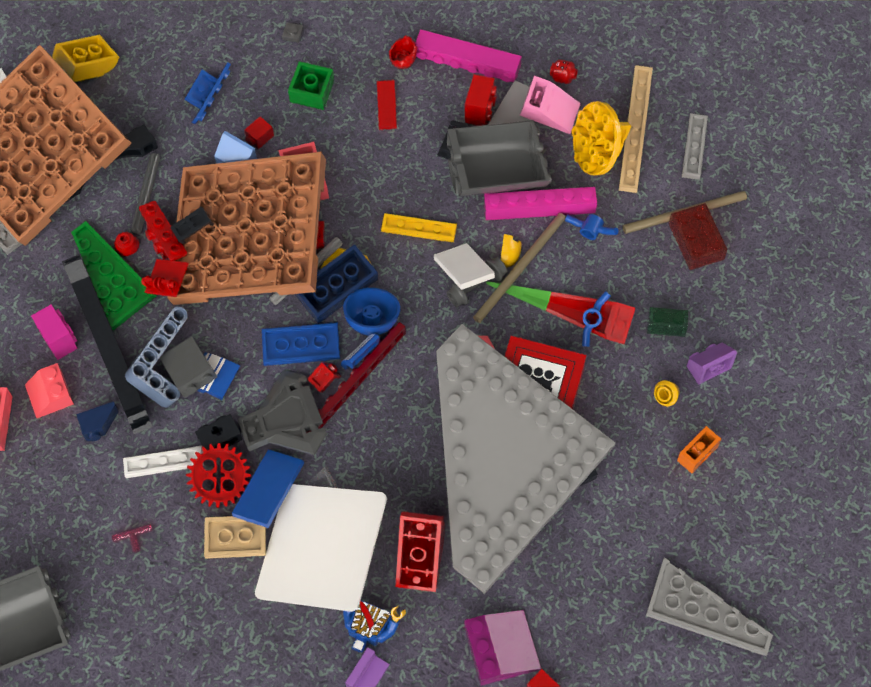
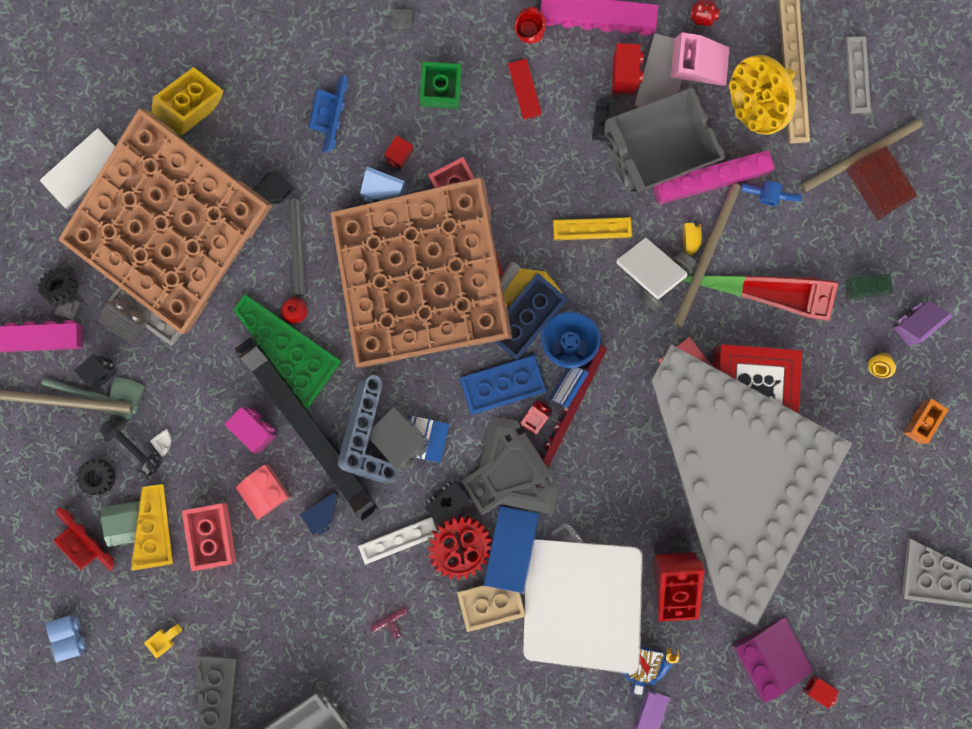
camera: 15 degrees left, 20 degrees up
(160, 233) = (330, 295): red bracket -> none
(165, 278) = (349, 346): red hinge -> none
(191, 224) = (362, 285): black hinge -> none
(588, 327) = (800, 305): blue piece -> none

